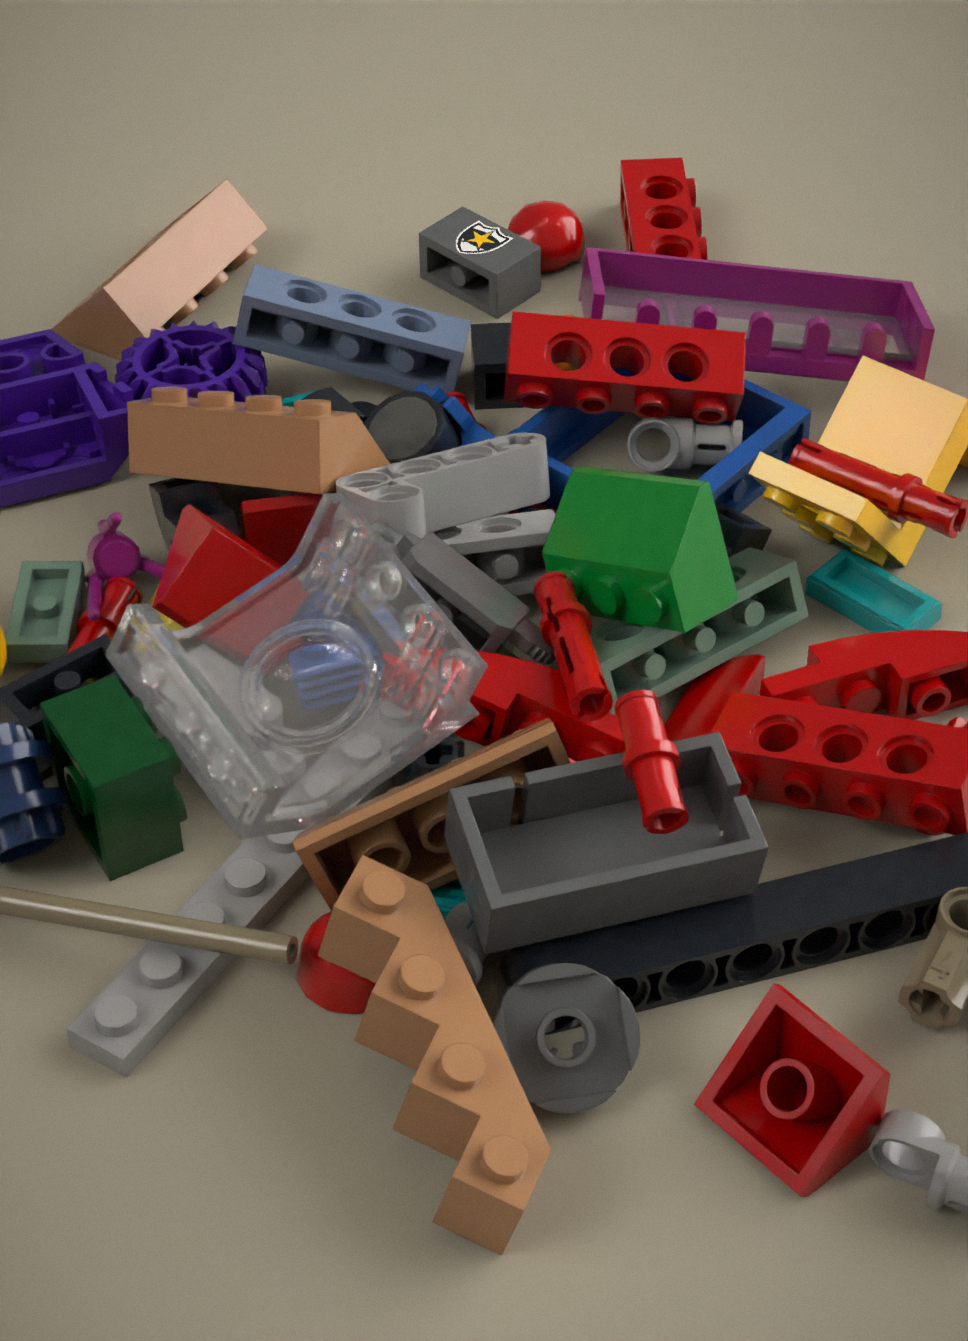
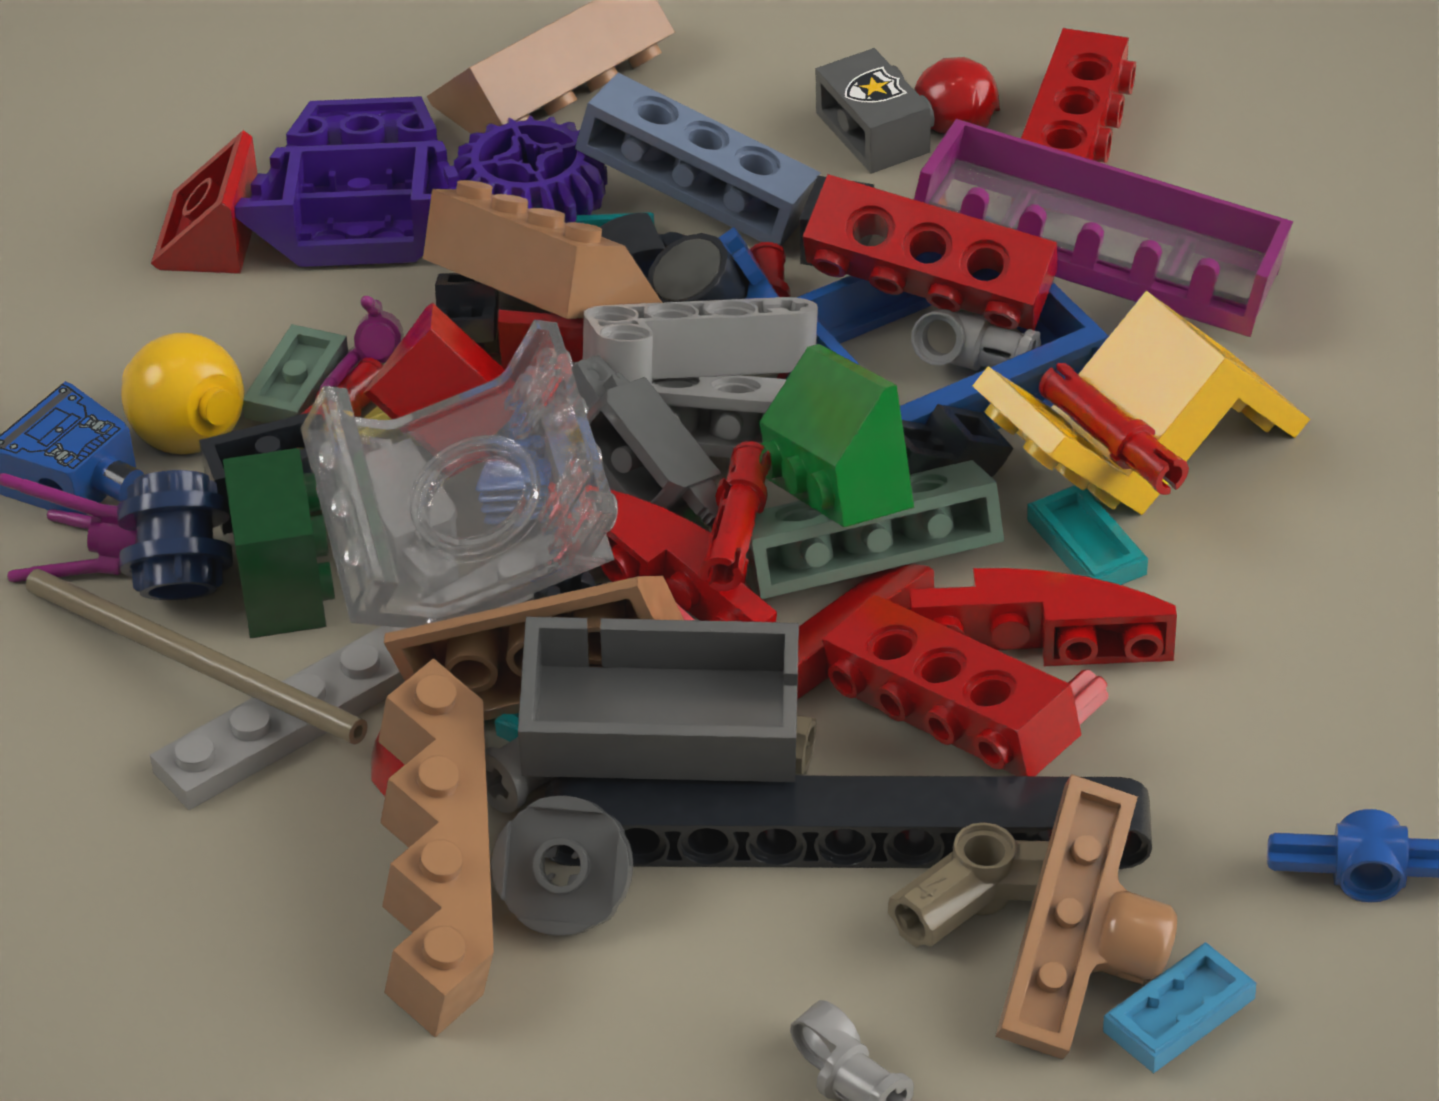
camera: 20 degrees right, 0 degrees up
(651, 762) = (714, 634): red pin -> none
(796, 1093) = (744, 967): red slope -> none

